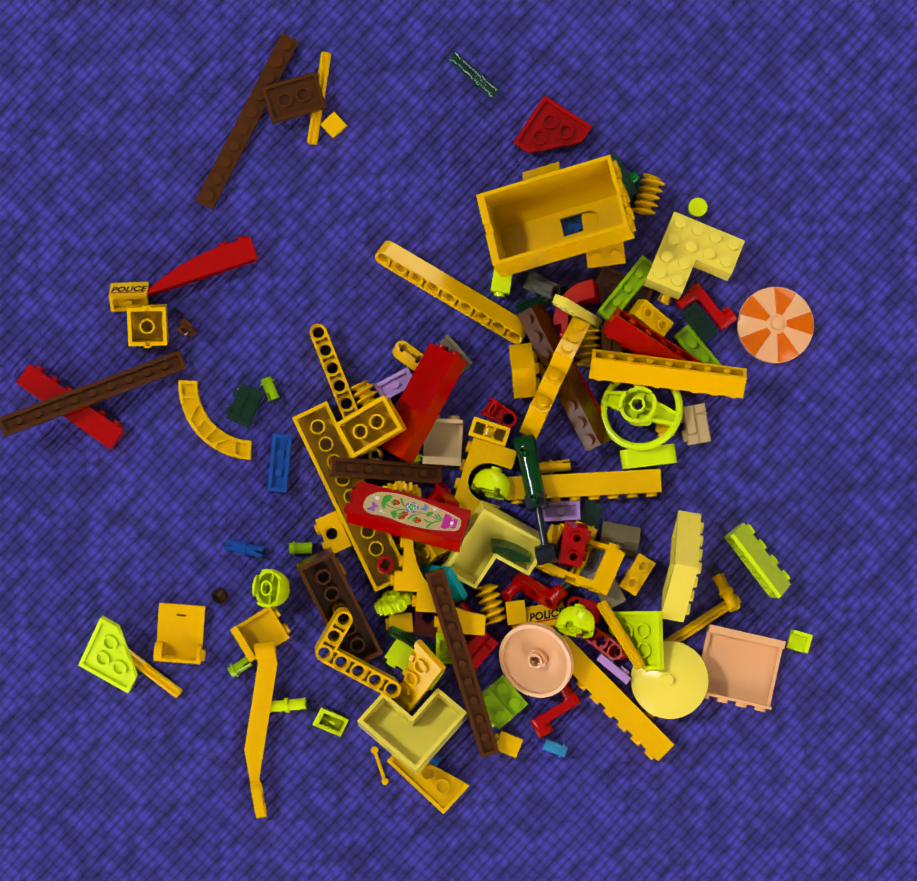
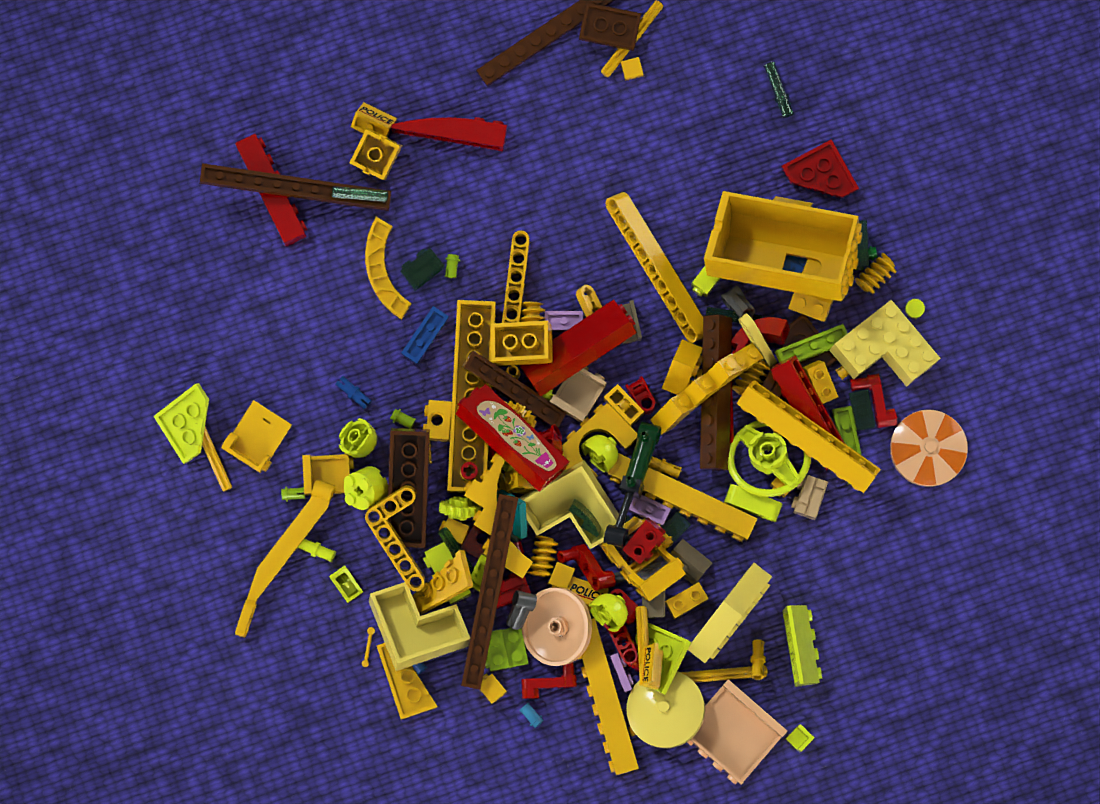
camera: 30 degrees right, 5 degrees down
(152, 368) = (359, 194): none -> clear green axle
(187, 329) = (408, 176): reddish brown plate -> none
(219, 595) = (309, 422): dark brown hinge -> none
(302, 629) = (365, 488): none -> neon yellow brick
(495, 657) = (521, 606): none -> dark grey piece
(639, 652) = (651, 666): none -> yellow panel

